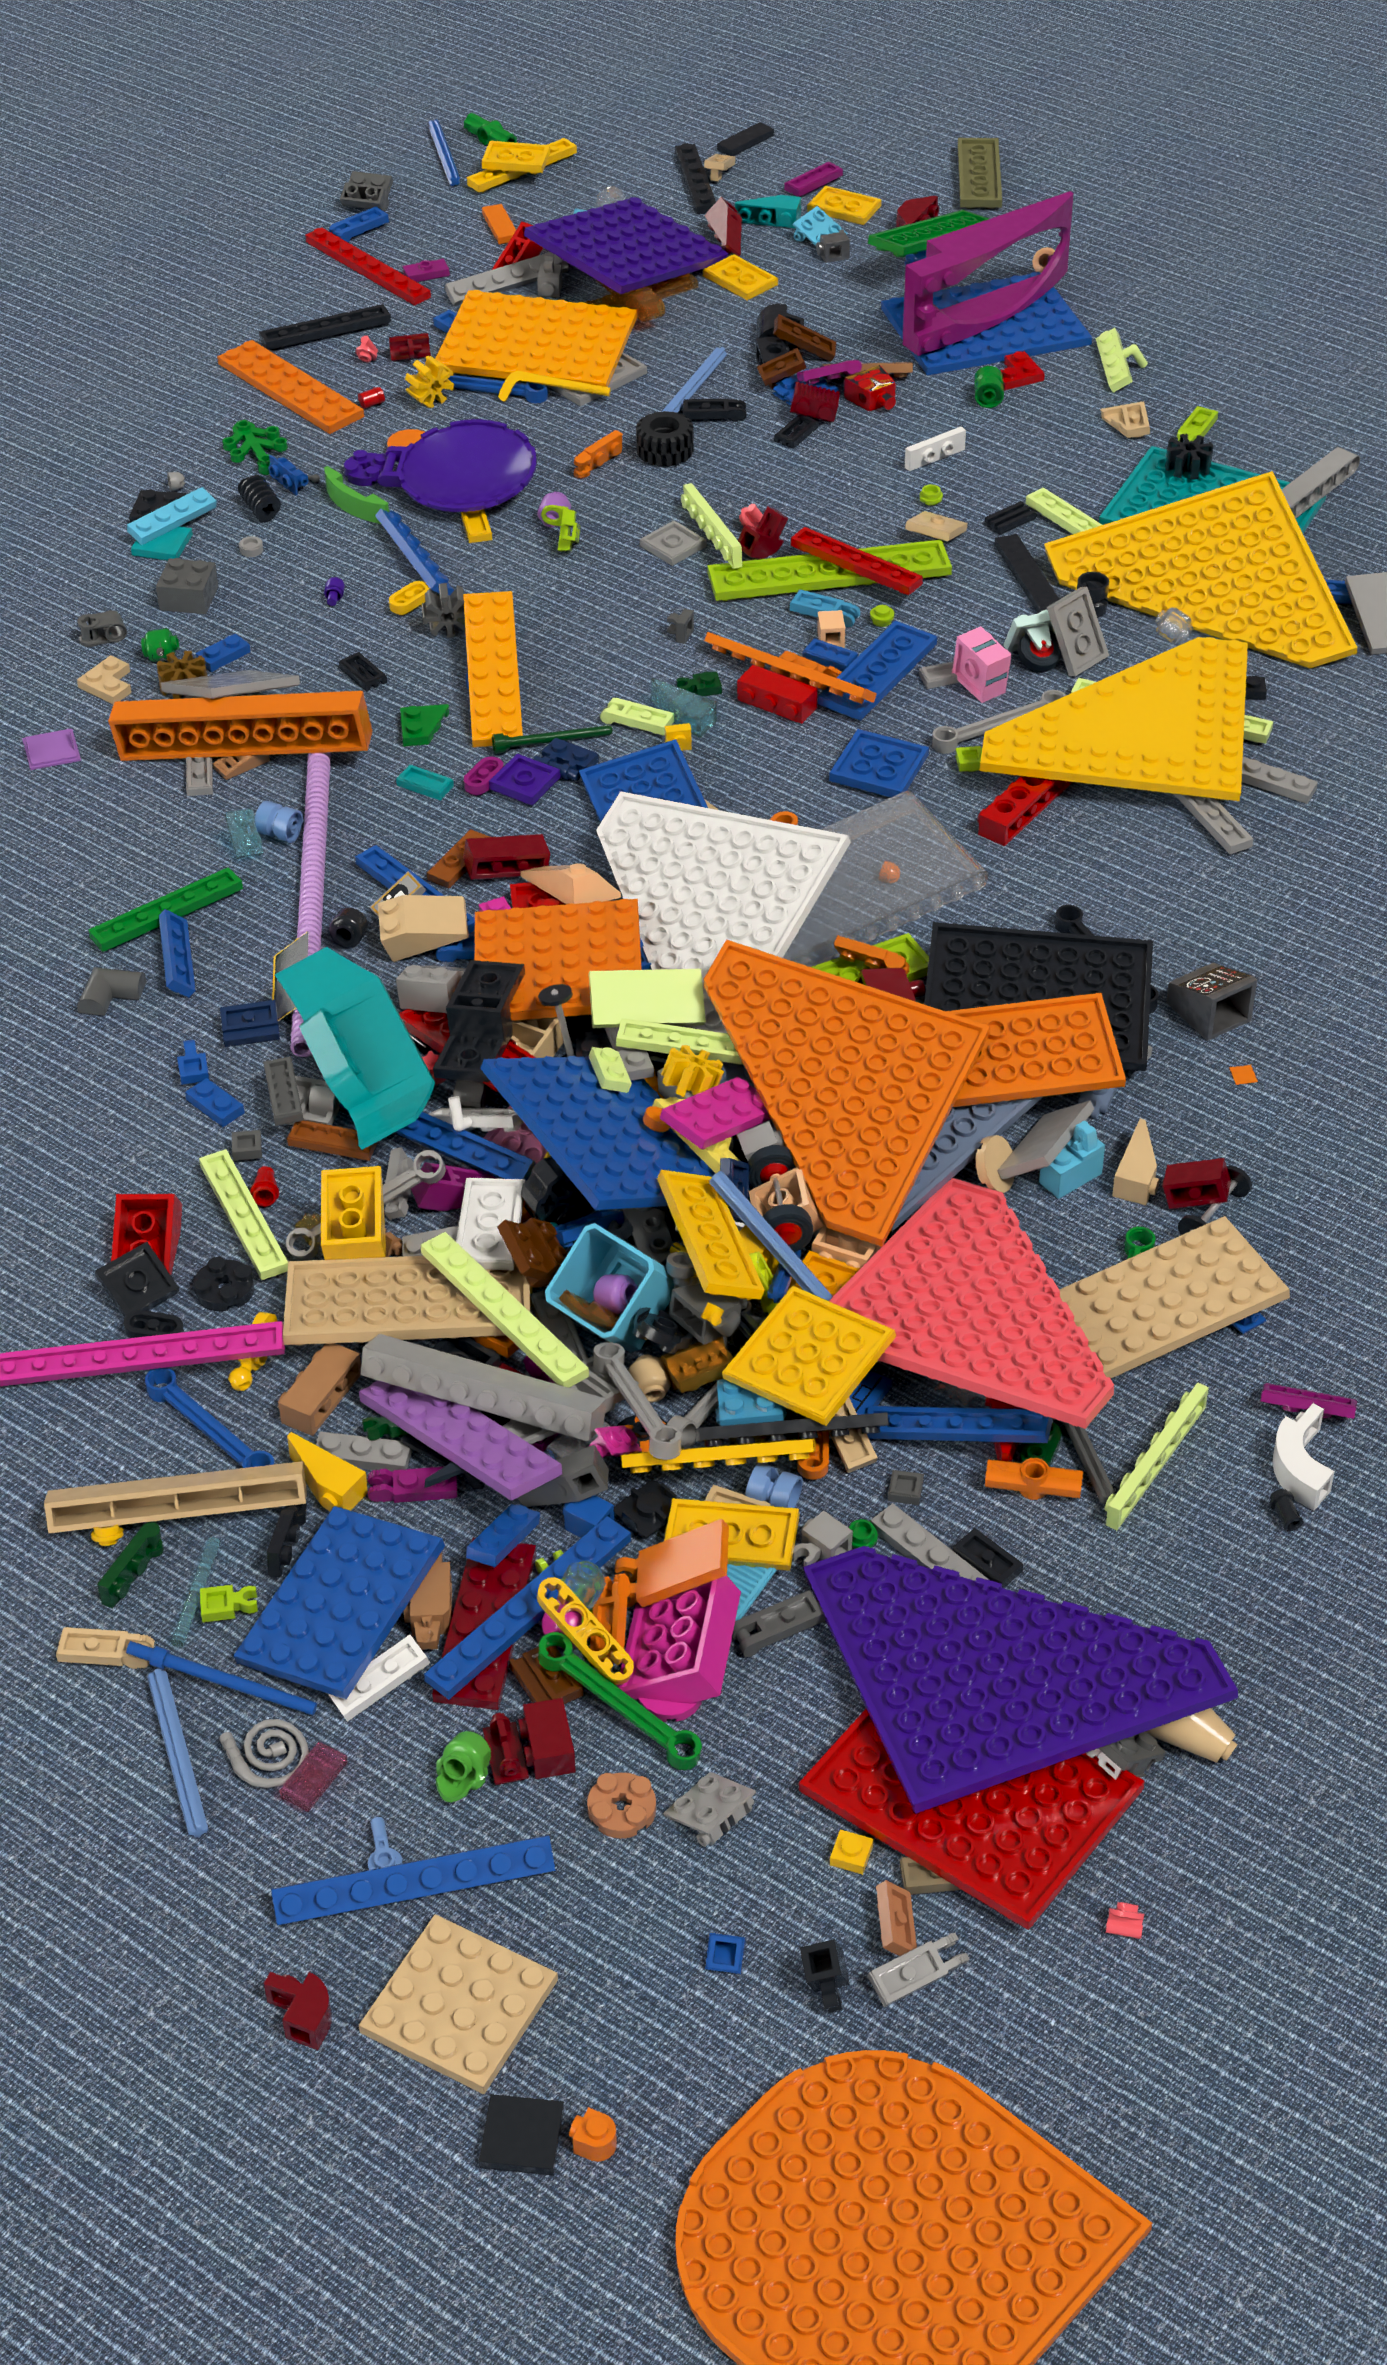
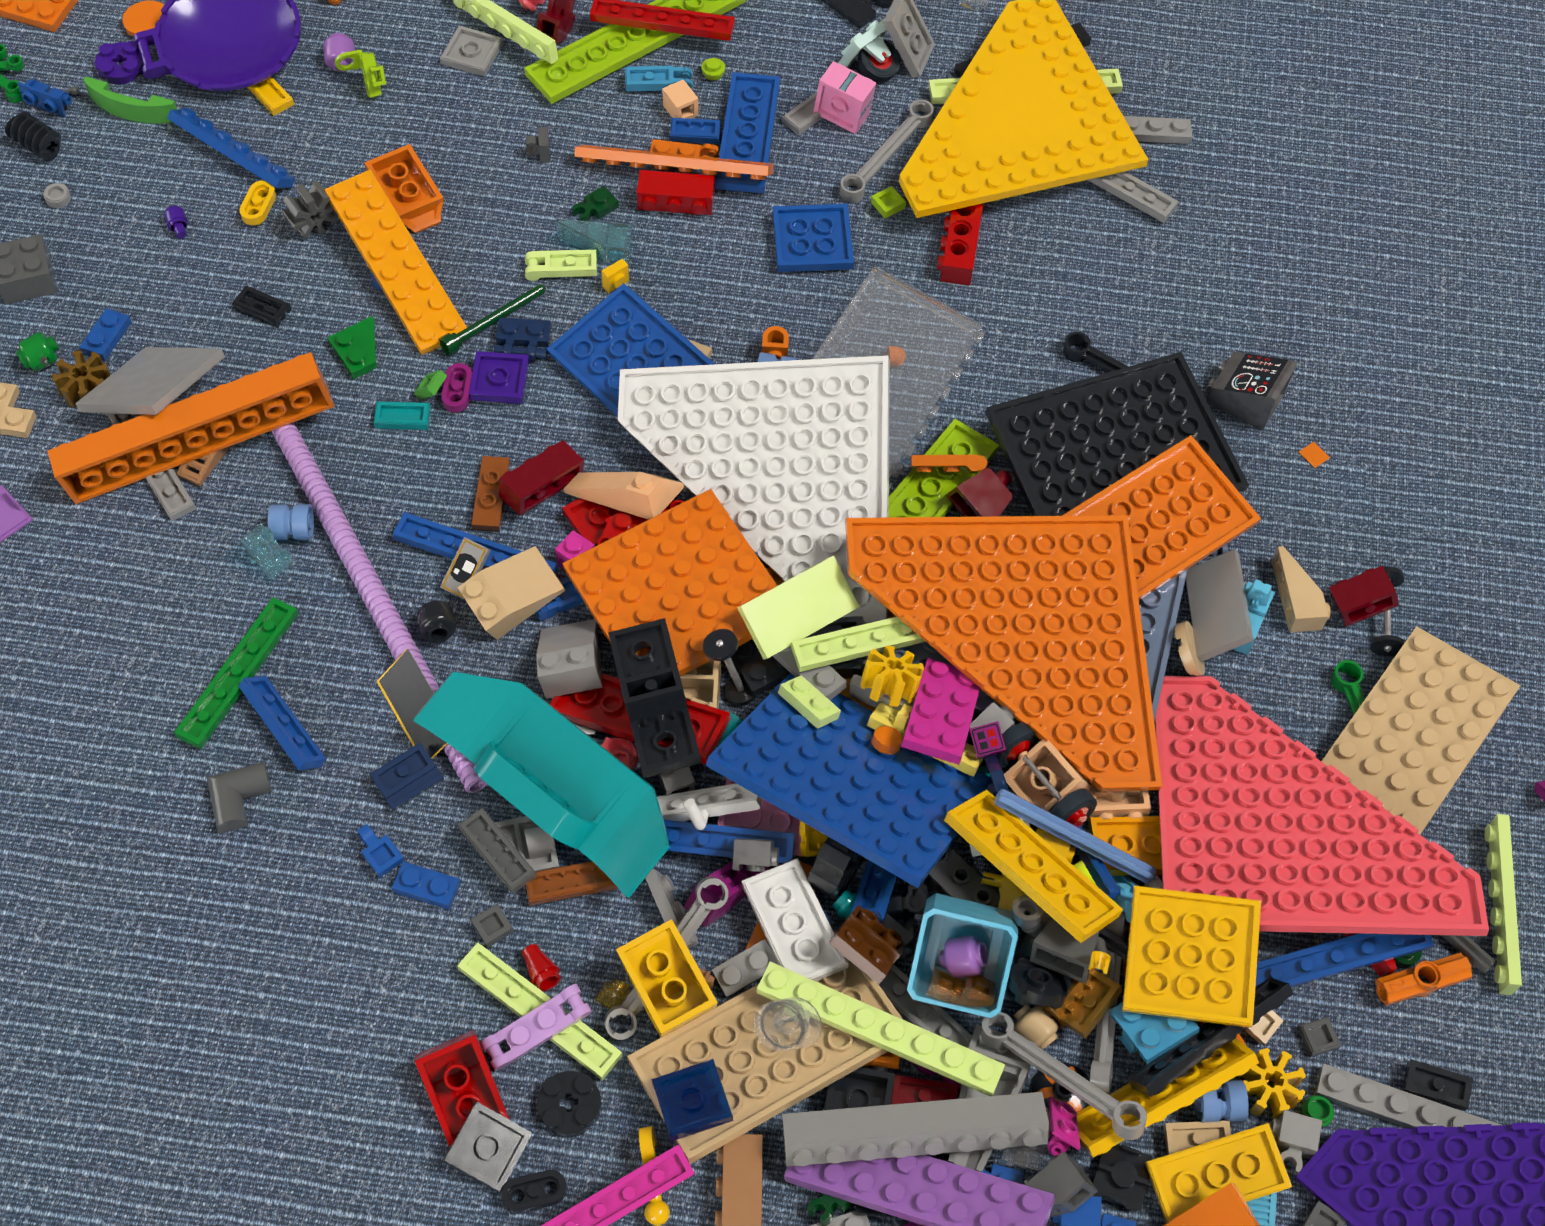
camera: 30 degrees left, 15 degrees up
(230, 1218) = (536, 1027): none -> lavender plate
(313, 1297) = (692, 1100): none -> clear blue plate
(424, 1271) = (787, 1024): none -> clear piece
(461, 765) = (430, 384): none -> bright green tile
(487, 1160) = (754, 854): none -> flat silver brick
(541, 622) = (408, 188): none -> orange slope
(745, 1146) = (987, 740): none -> magenta tile
(831, 1494) = (1282, 1091): none -> yellow gear

